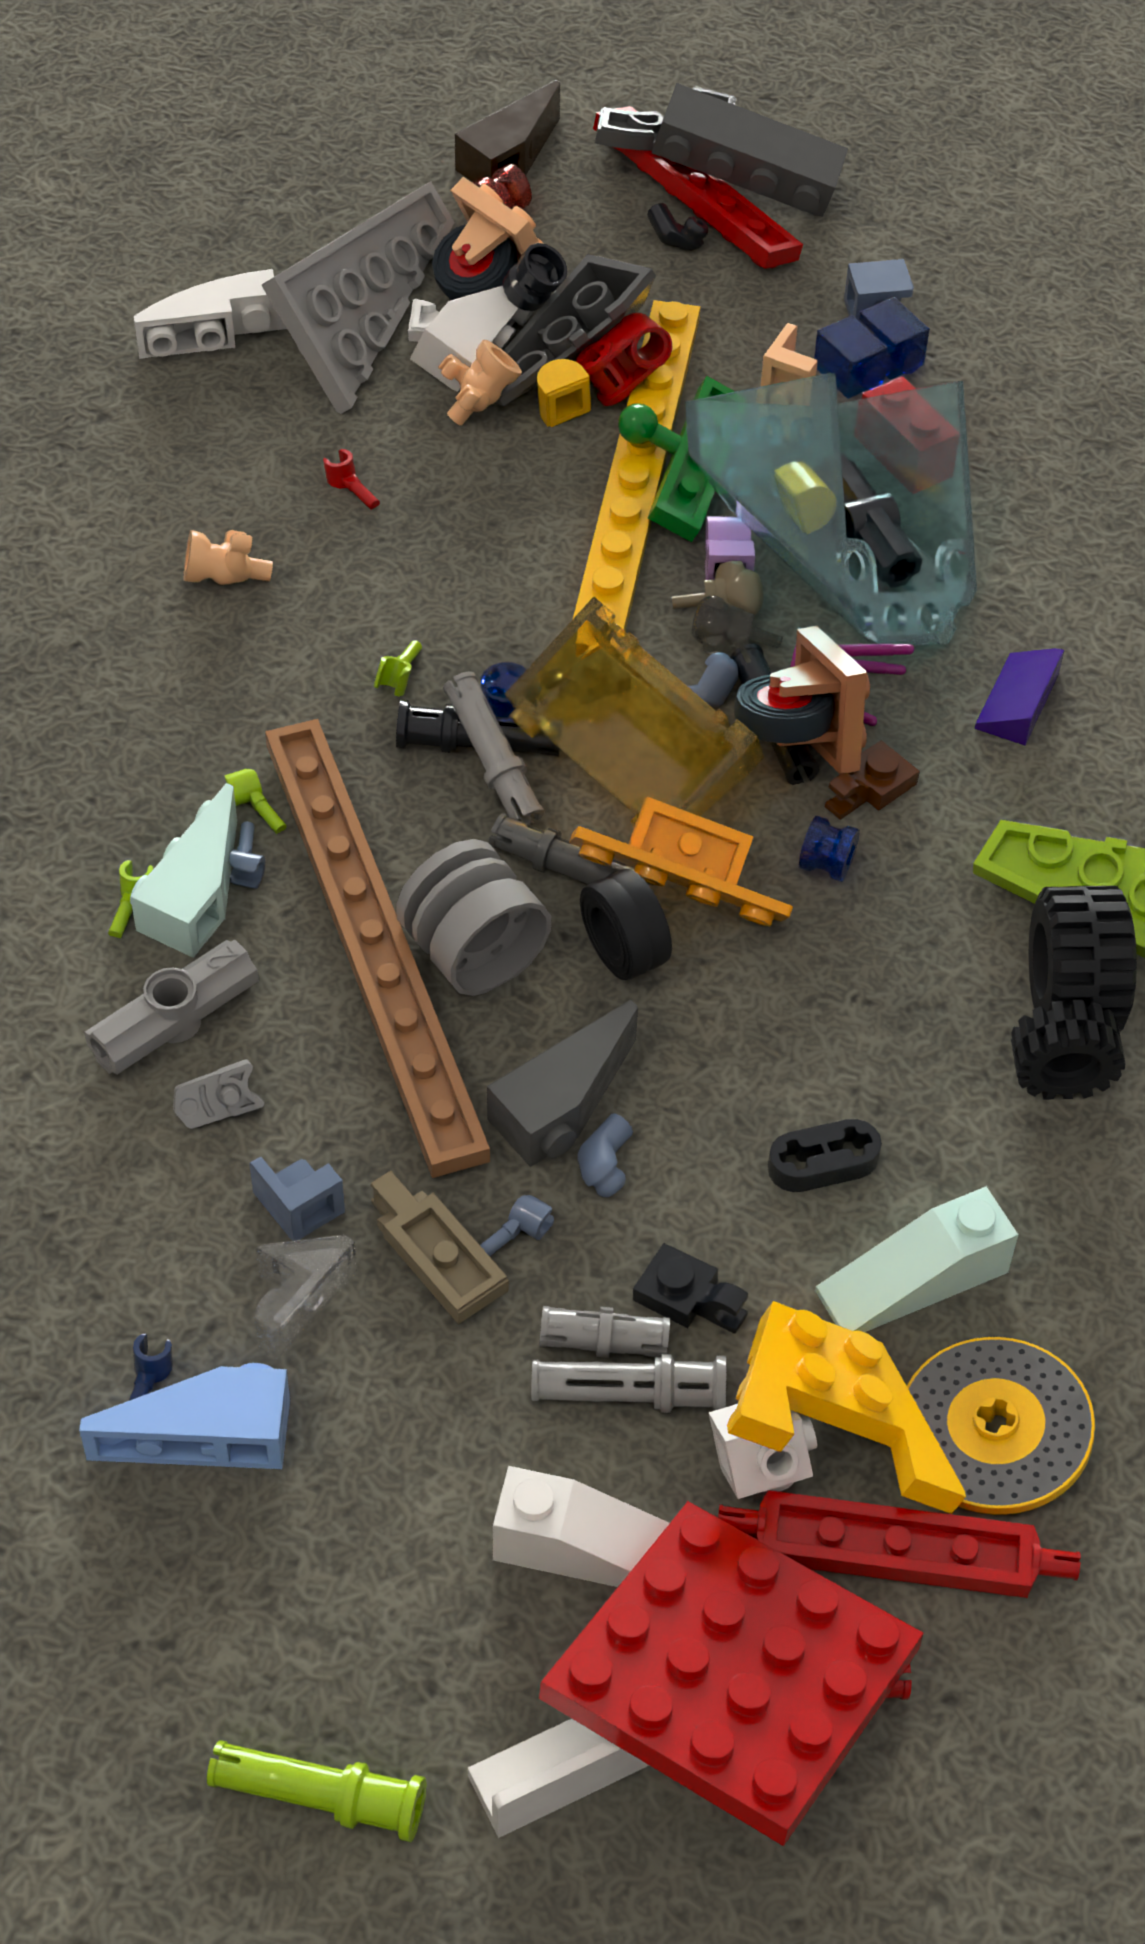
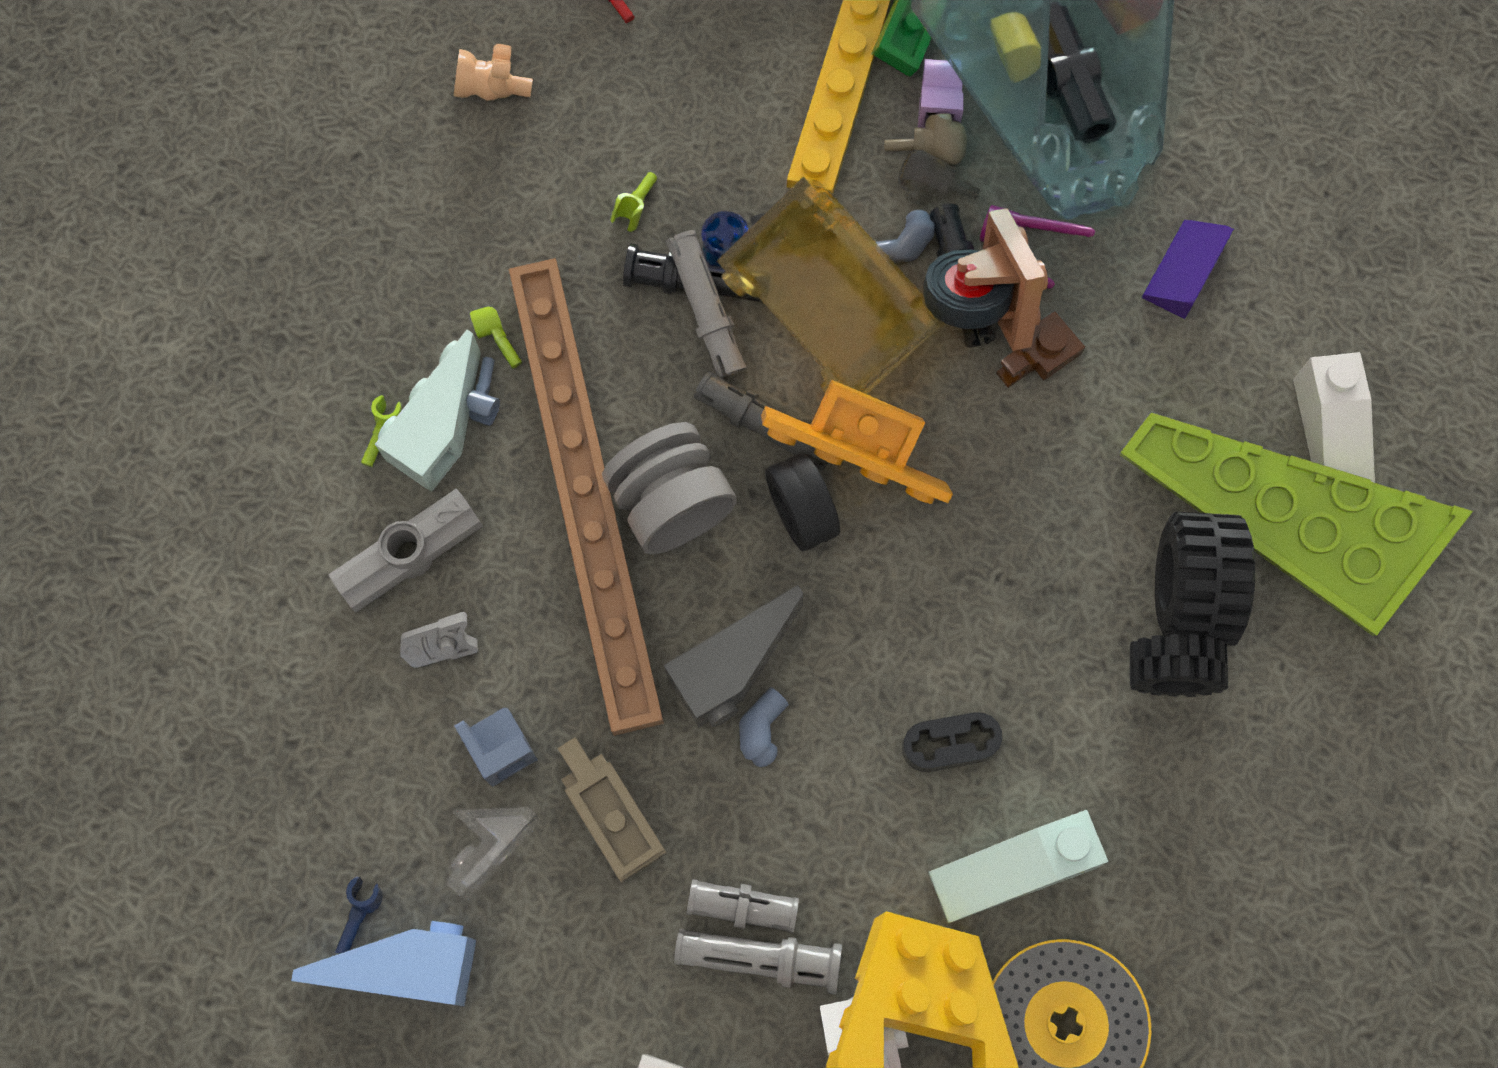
camera: 10 degrees right, 20 degrees up
(526, 1215) = (689, 783): sand blue hand -> none
(687, 1287) = (813, 864): black plate -> none
(829, 848) = (993, 426): clear blue wheel -> none

